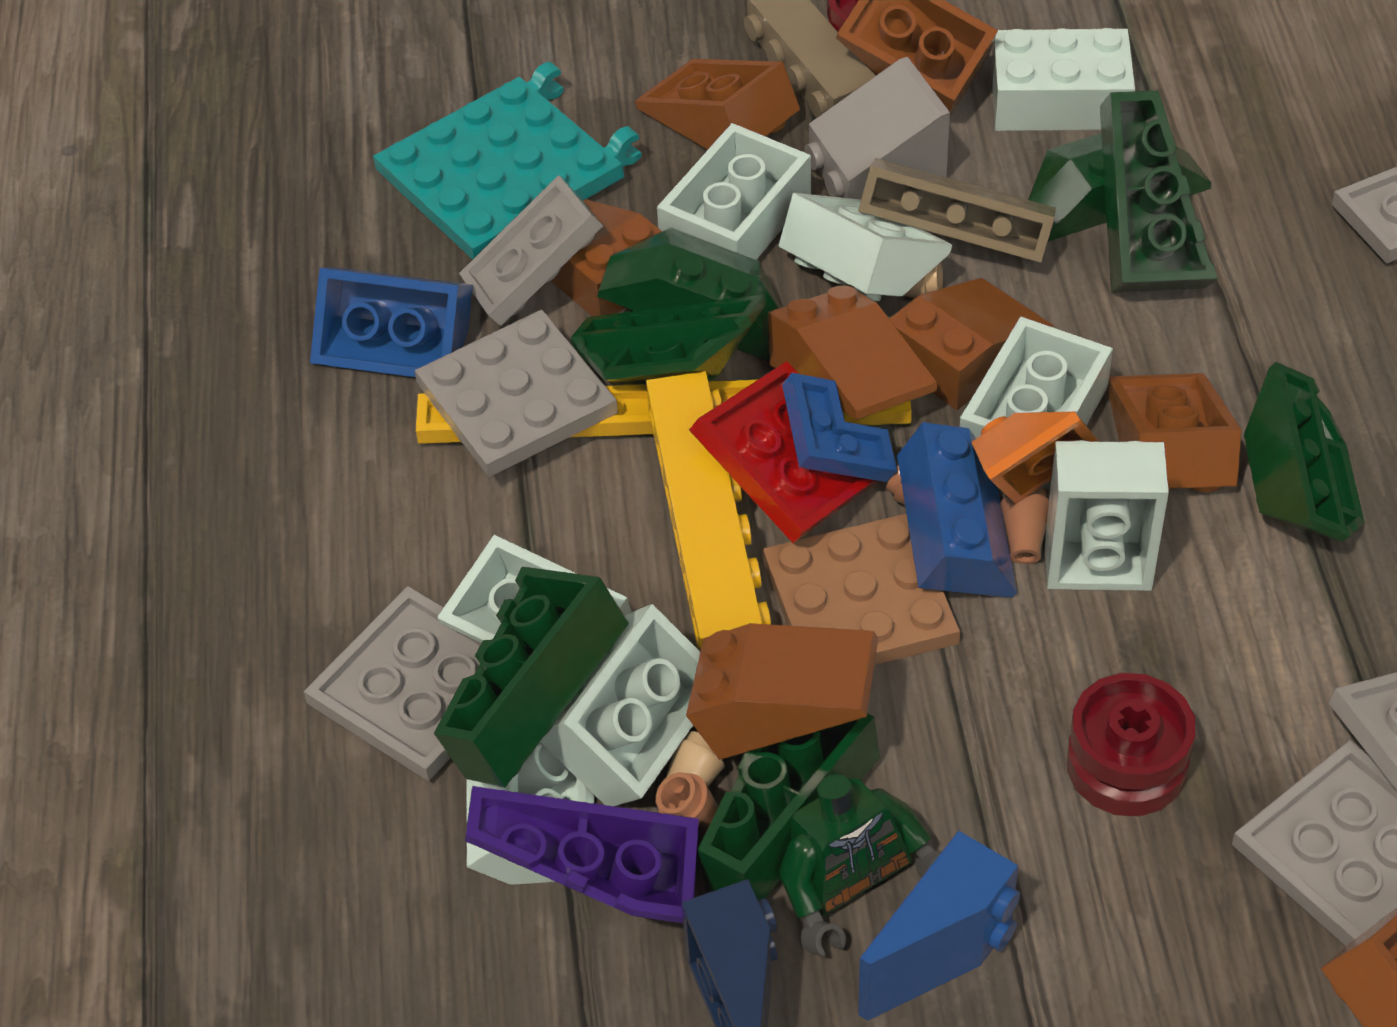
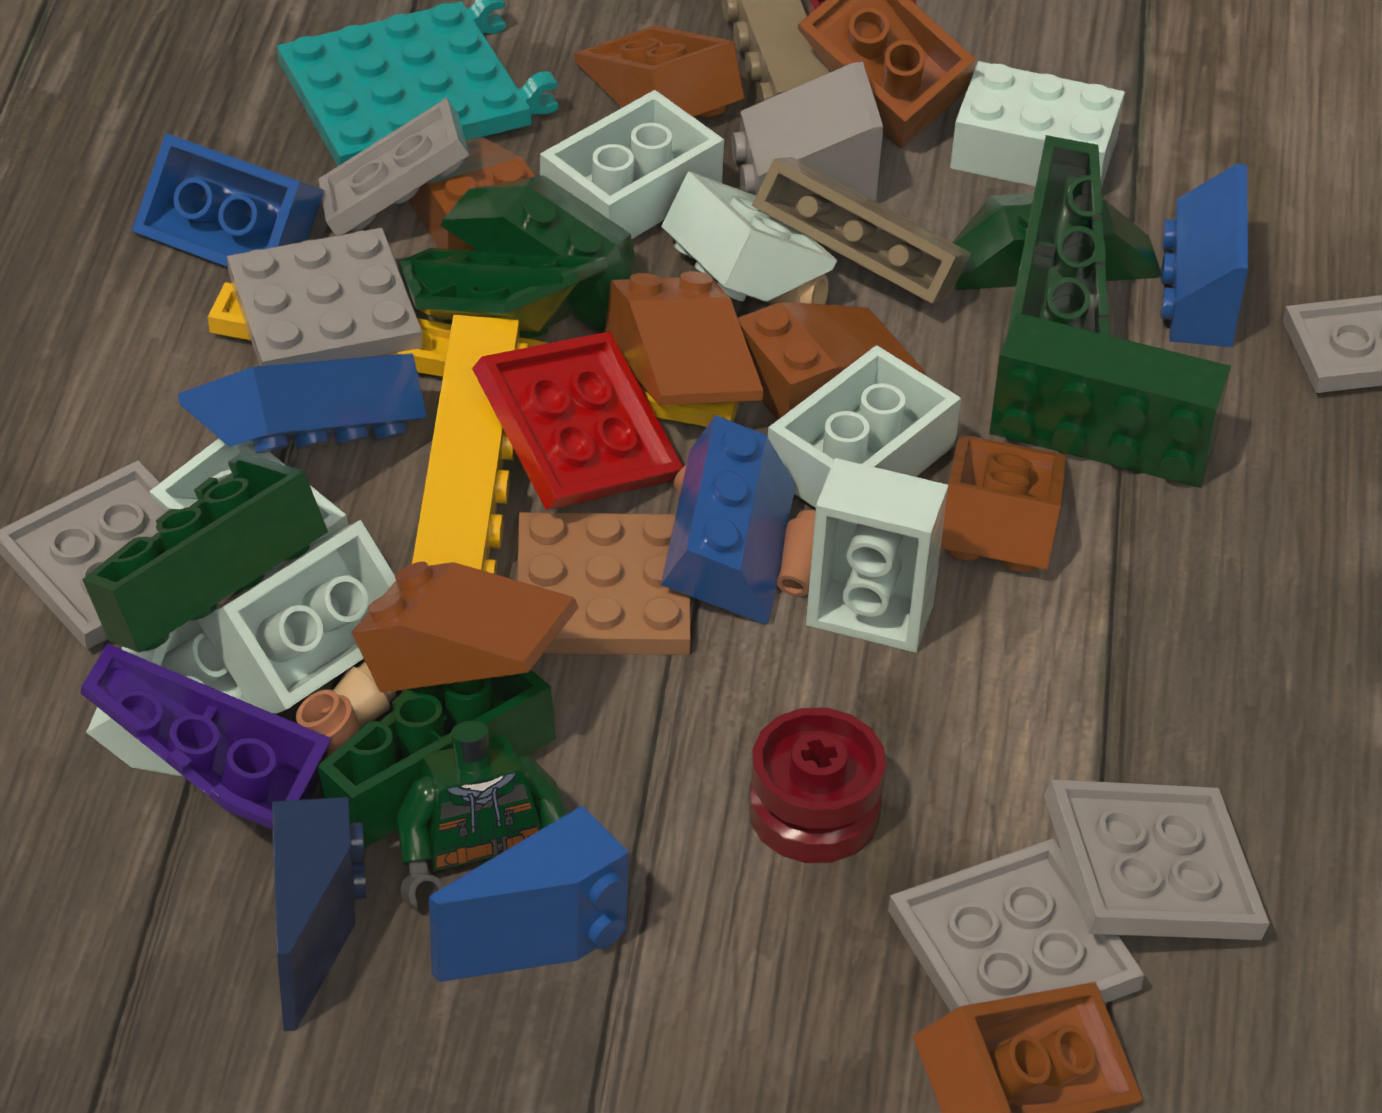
camera: 10 degrees right, 5 degrees down
(550, 499) = (310, 402): none -> blue slope
(827, 441) = (619, 418): blue plate -> none
(1021, 448) = (800, 462): orange slope -> none
(1232, 315) = (1108, 399): none -> dark green brick
(1257, 164) = (1206, 260): none -> blue slope
(1300, 458) = (1128, 556): dark green wedge -> none

